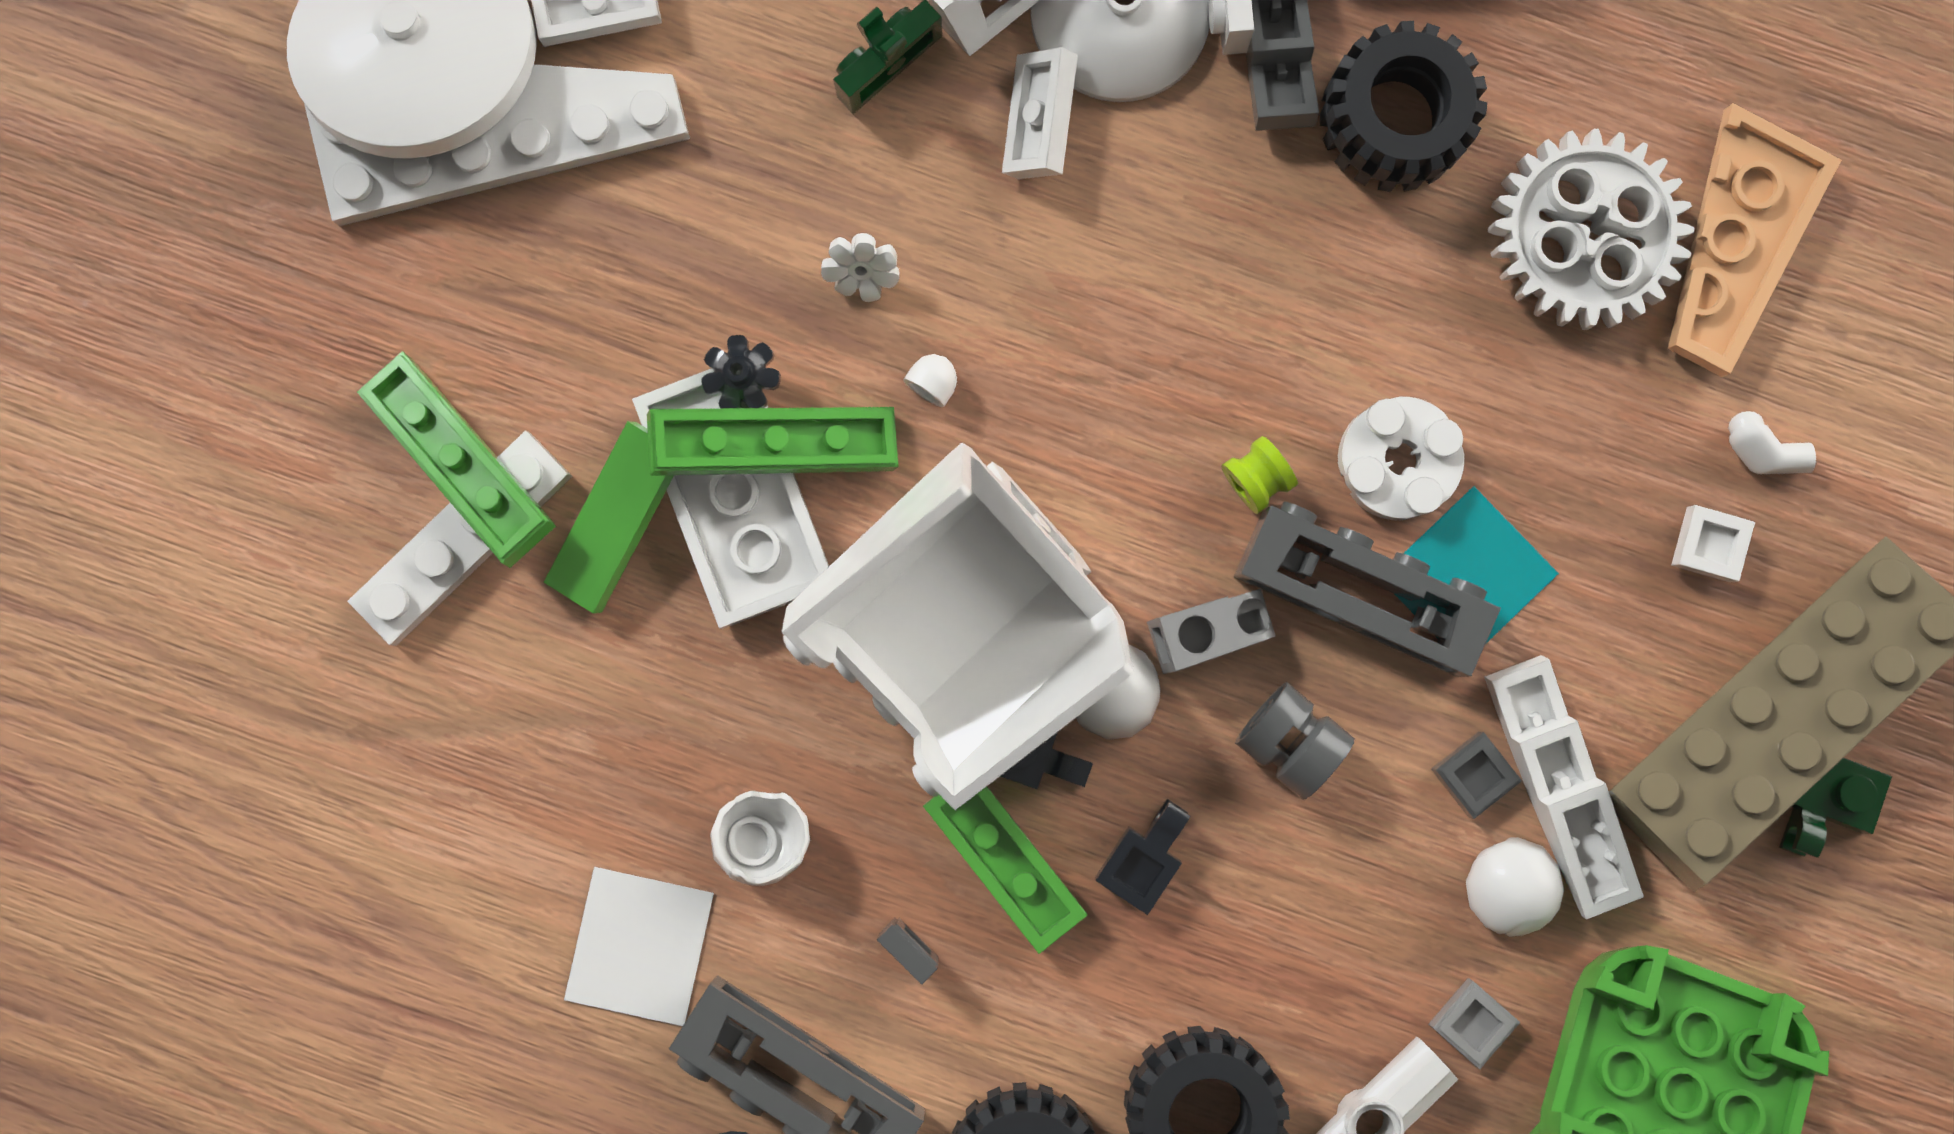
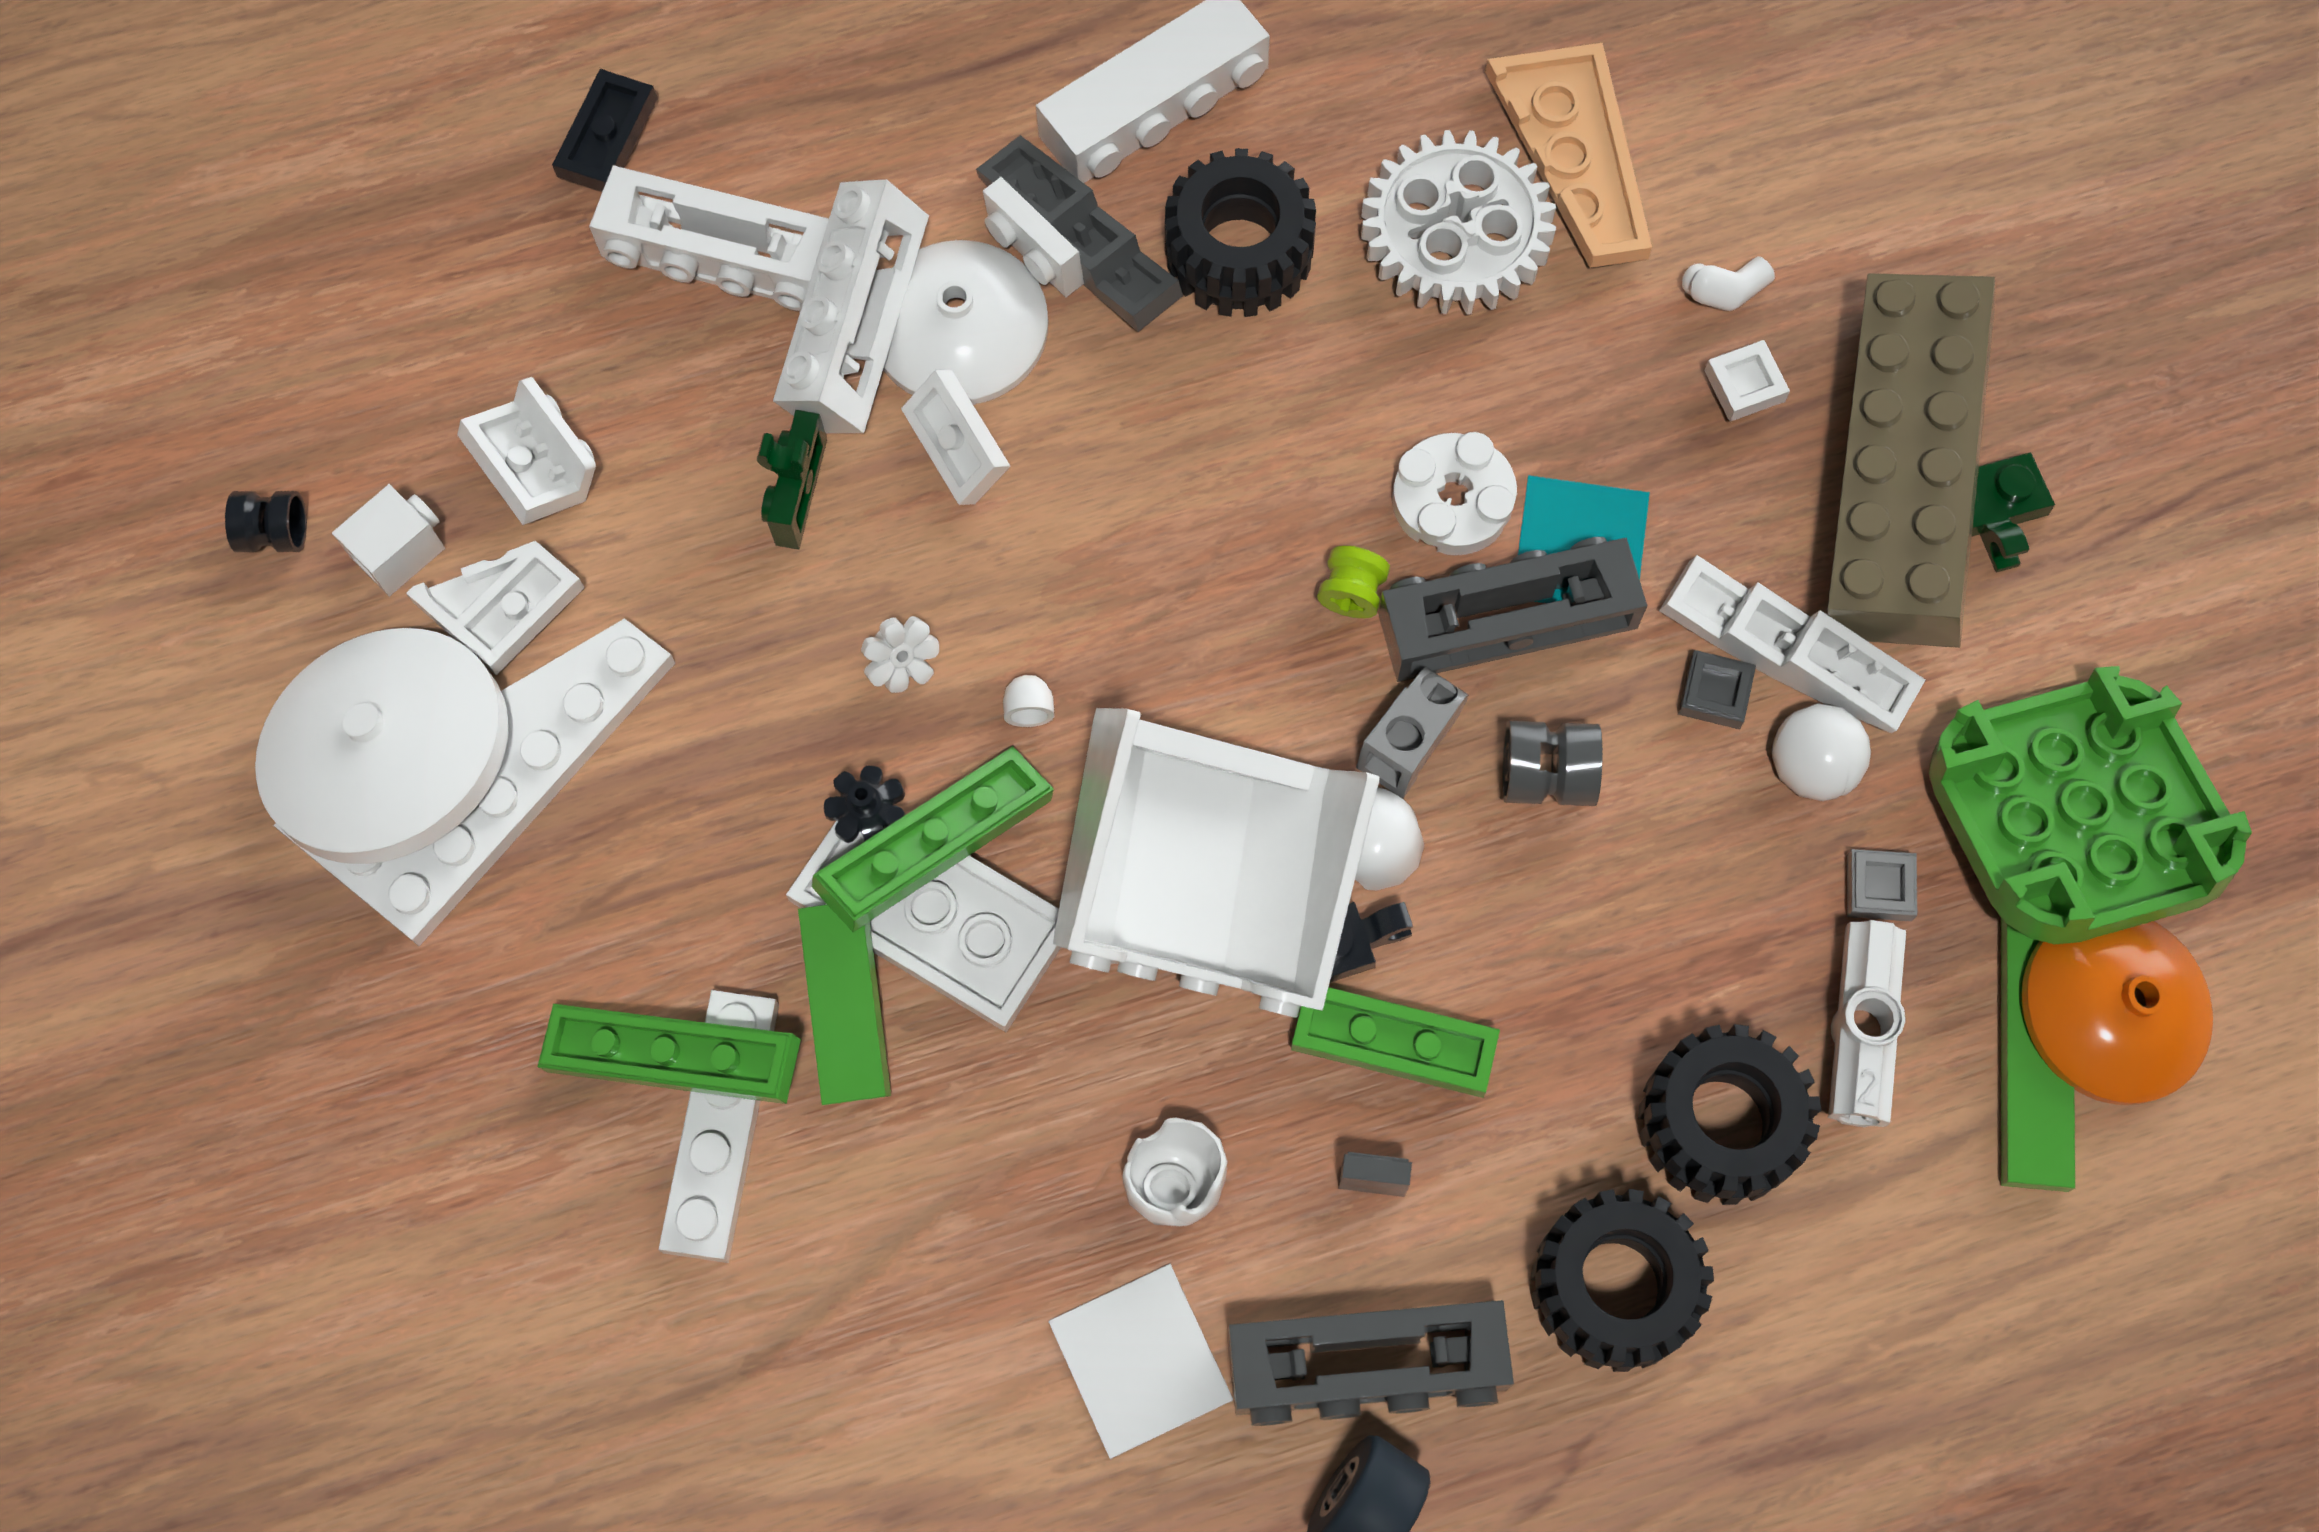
camera: 35 degrees left, 15 degrees down
(1141, 864) = (1510, 957): black plate -> none

